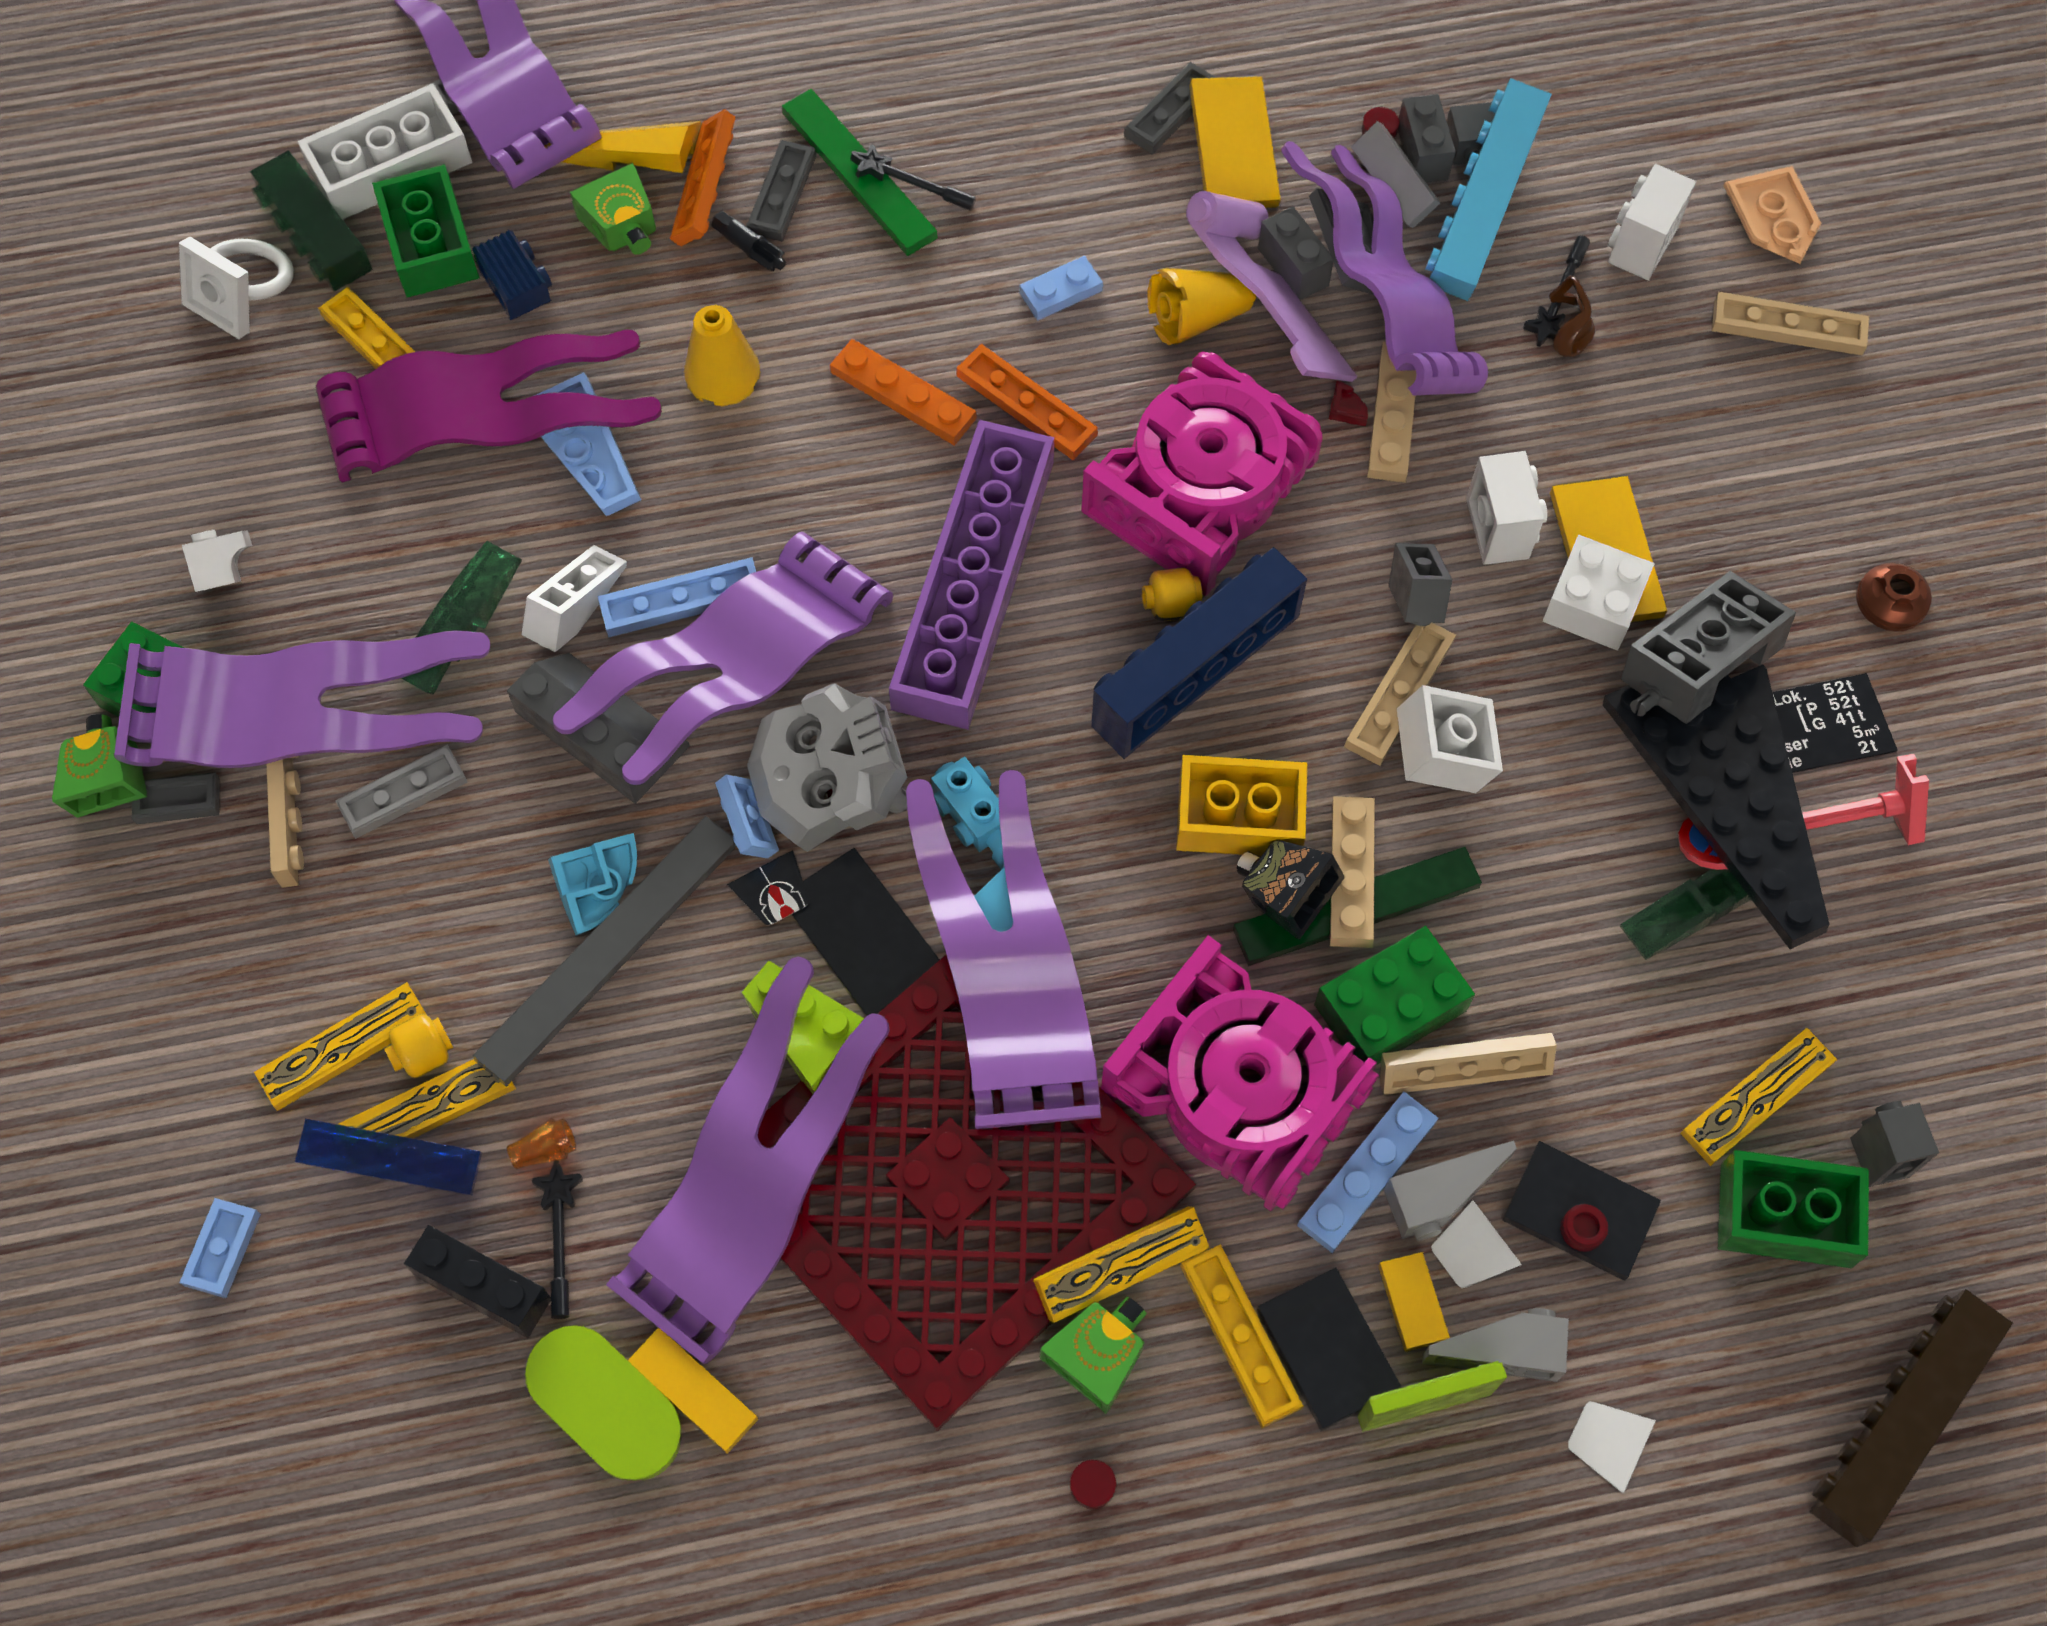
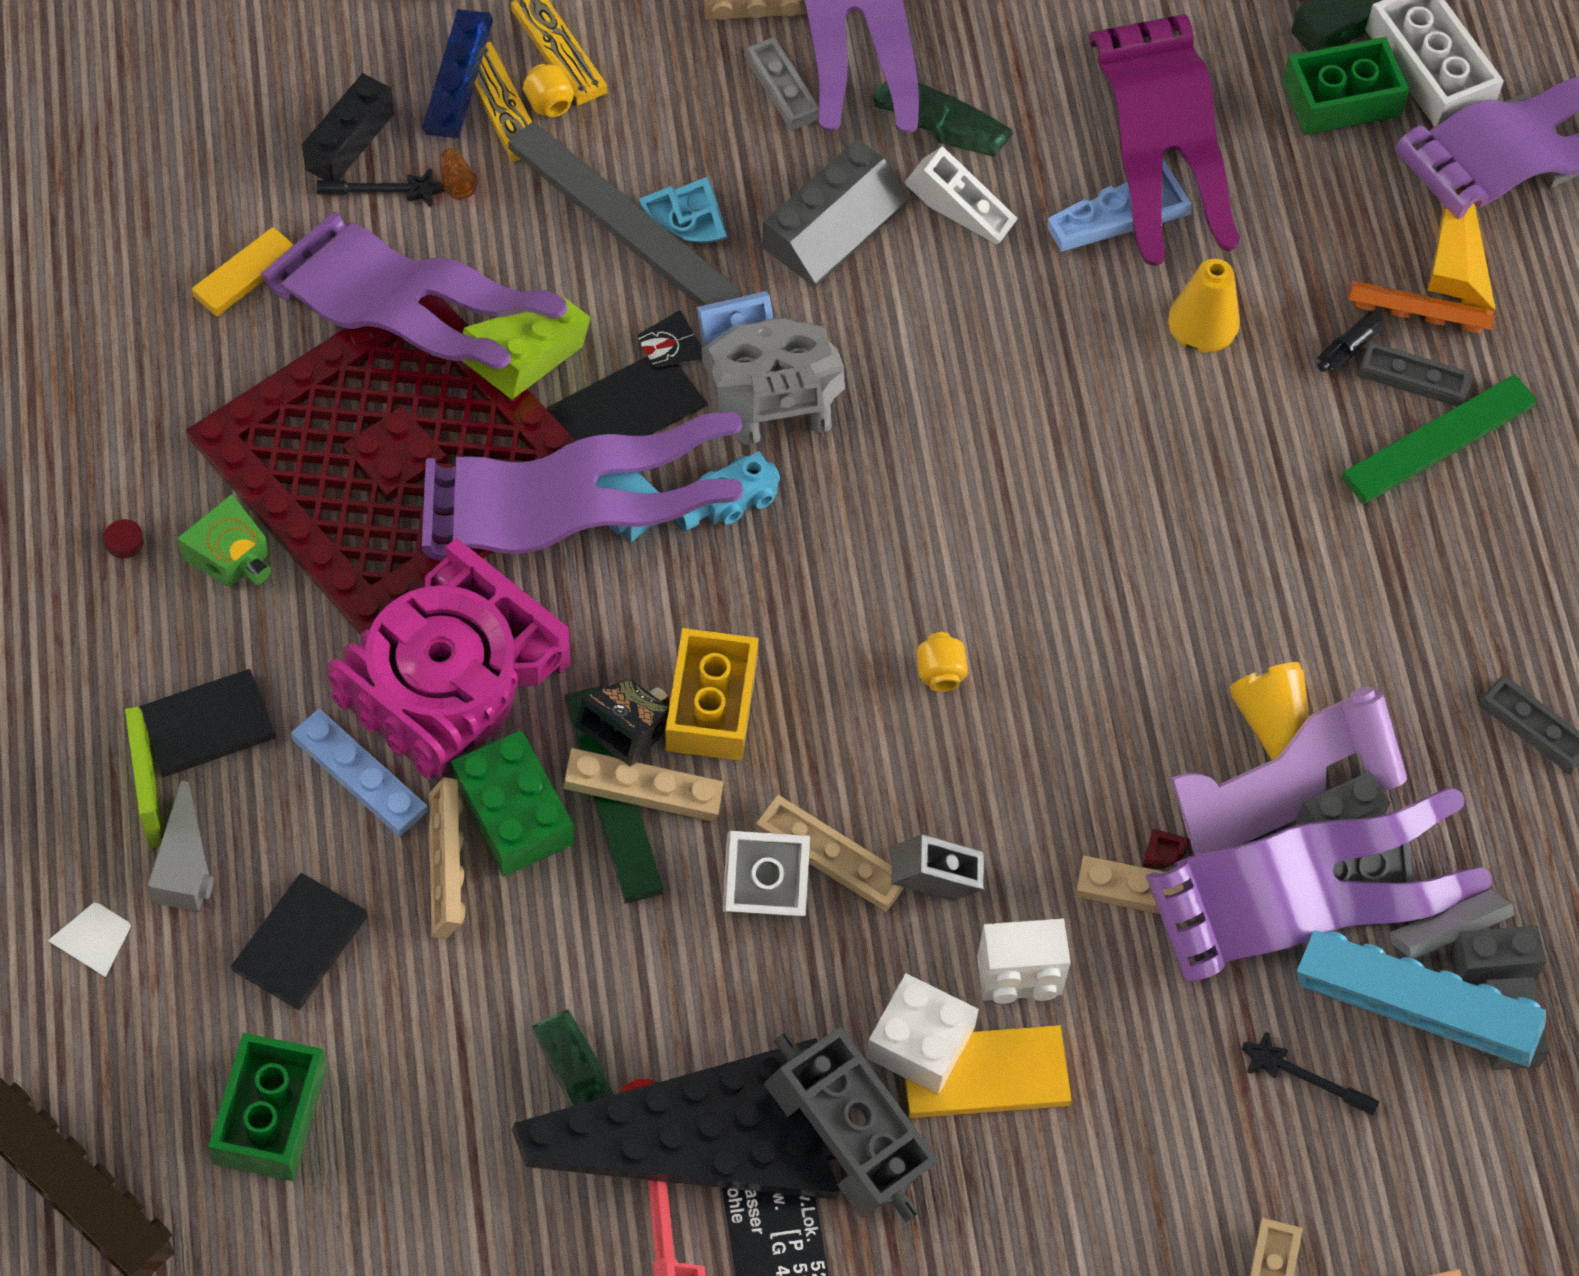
camera: 90 degrees right, 5 degrees down
(363, 328) = (1245, 53): yellow tile -> none
(512, 274) = (1303, 155): dark blue brick -> none
(603, 1403) = (243, 211): lime tile -> none
(616, 210) = (1379, 237): bright green torso -> none
(669, 598) = (958, 278): light blue plate -> none
(751, 633) = (908, 321): medium lavender flag -> none
(879, 165) = (1441, 446): black piece -> none
(903, 392) = (1179, 463): orange plate -> none
(972, 575) = (969, 497): medium lavender brick -> none
(1026, 401) = (1164, 561): orange plate -> none
(1061, 287) = (1303, 604): light blue plate -> none
(1121, 1264) = (298, 566): yellow tile -> none
(1197, 651) = (872, 669): dark blue brick -> none
(1209, 498) = (1079, 651): dark pink brick -> none
(1235, 138) = (1492, 770): yellow tile -> none
(1241, 1336) = (228, 656): yellow tile -> none
(1384, 116) = (1525, 915): dark red tile -> none
(1413, 1301) = (237, 793): yellow tile -> none
(1432, 1195) = (327, 822): light grey slope -> none
(1473, 1249) = (279, 851): white sticker -> none
(1578, 331) = (1245, 1075): reddish brown piece -> none
(1584, 1227) = (278, 931): dark red tile -> none
(1649, 221) = (1385, 1160): white brick -> none
(1758, 1096) = (388, 1113): tile -> none
(1894, 1143) = (316, 1202): dark grey brick -> none

